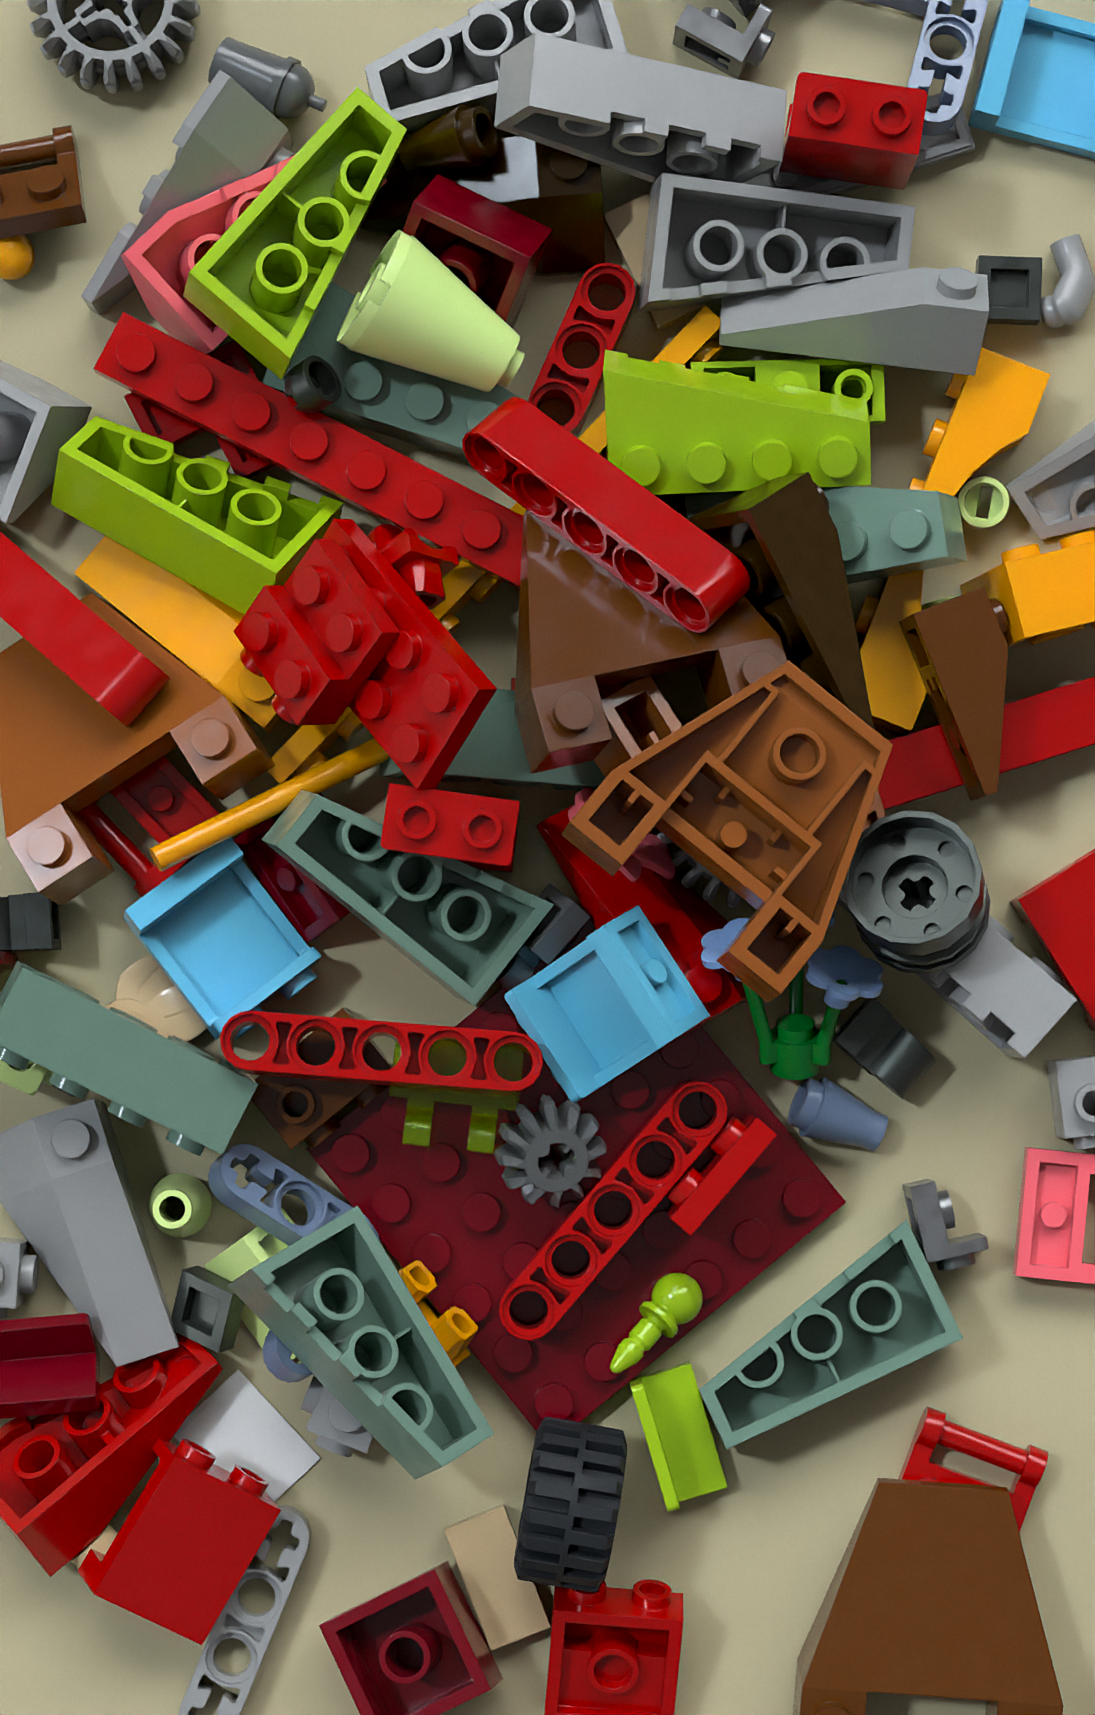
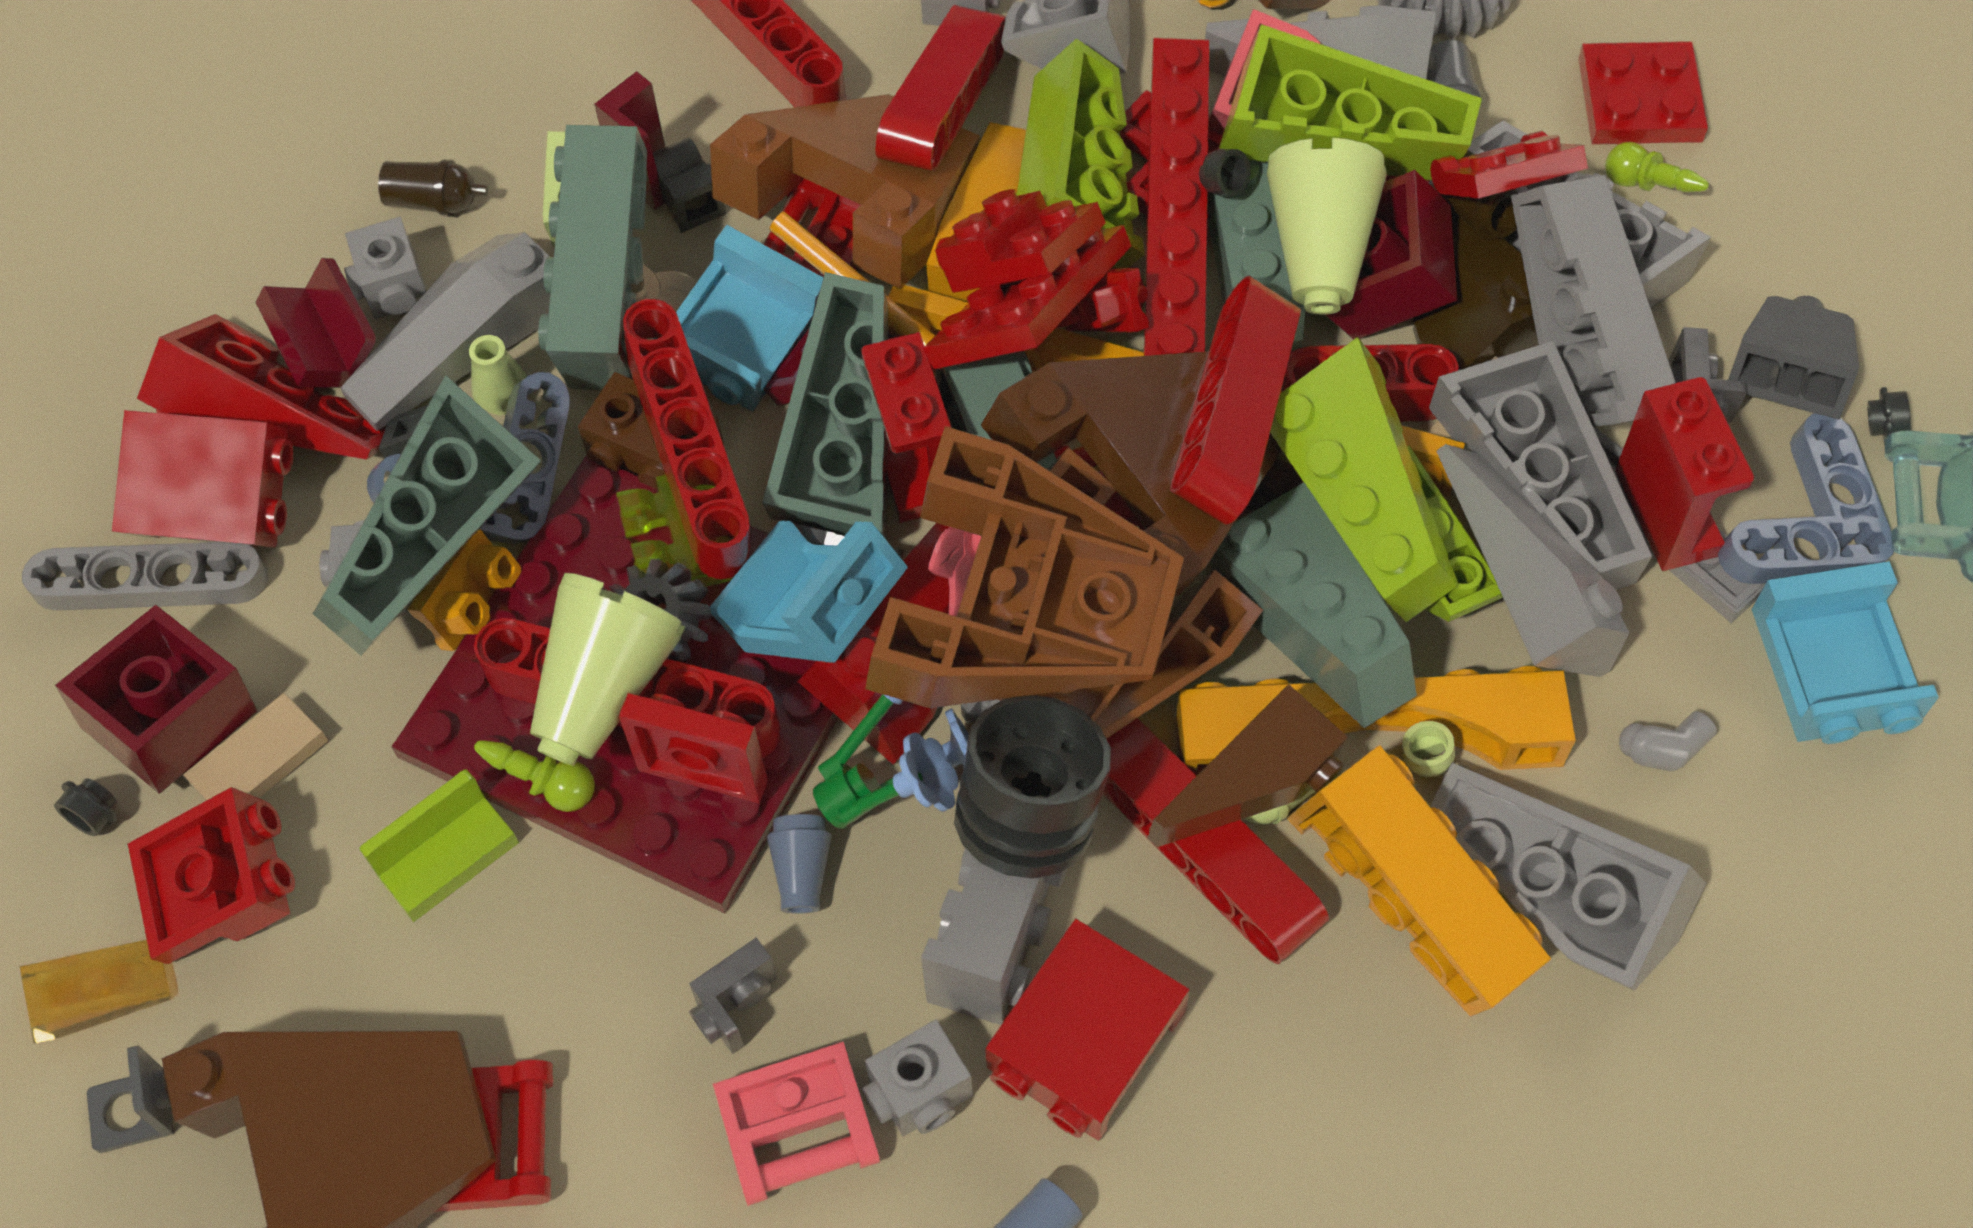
camera: 70 degrees right, 25 degrees down
(249, 1432) = (313, 504): white sticker -> none
(467, 107) = (1508, 167): none -> red plate
(571, 1505) = (336, 760): black tyre -> none
(617, 1232) = (593, 658): none -> yellowish green cone
(796, 579) = (1275, 542): dark brown wedge -> none
(846, 1335) = (589, 948): sand green wedge -> none
(884, 1047) = (883, 871): pearl dark grey leg -> none
(1012, 288) = (1629, 690): pearl dark grey plate -> none

